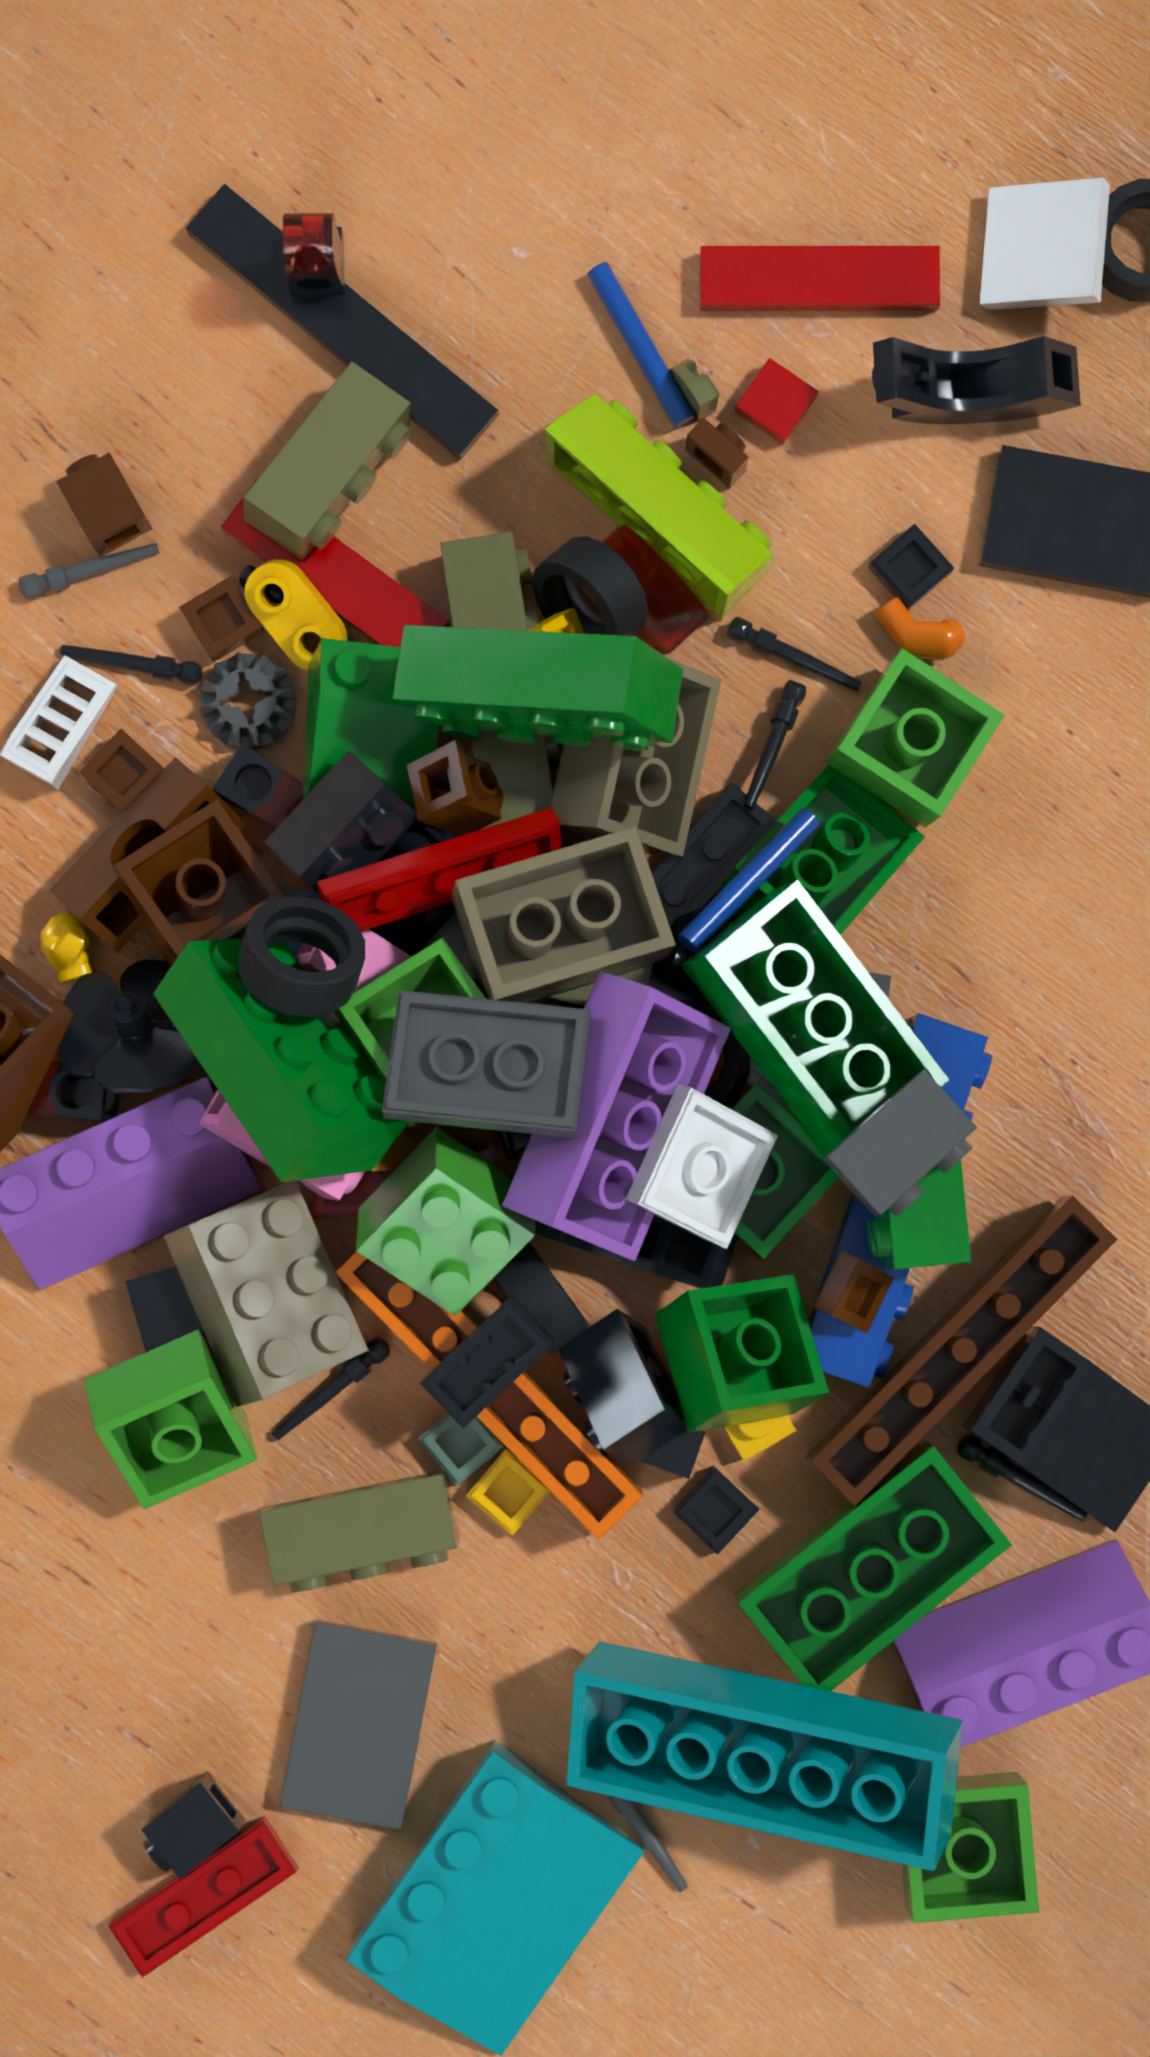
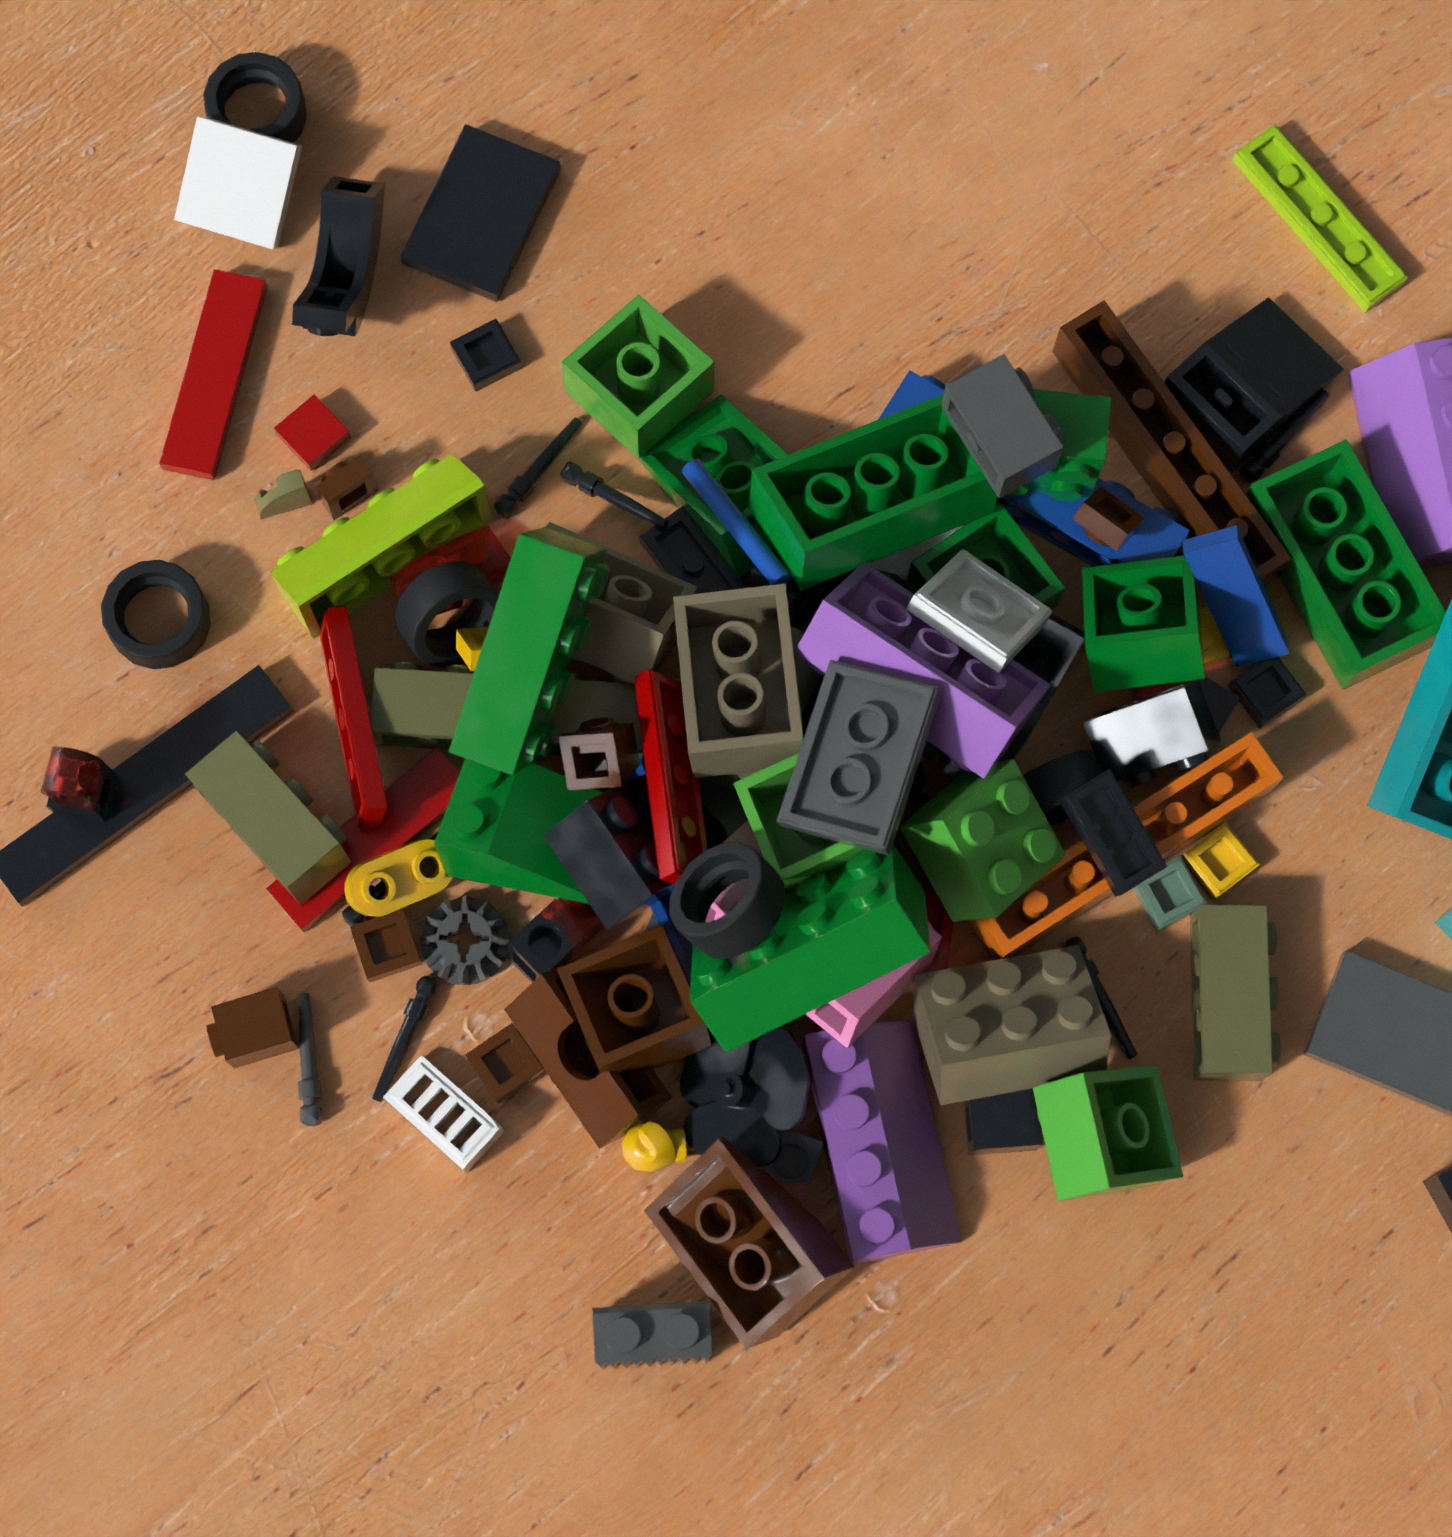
camera: 80 degrees left, 10 degrees down
(455, 521) = (352, 719): none -> red tile
(529, 241) = (138, 578): none -> black tyre
(641, 345) = (233, 533): blue bar -> none
(795, 1451) = (1236, 596): none -> blue tile
(921, 638) = (553, 348): orange arm -> none

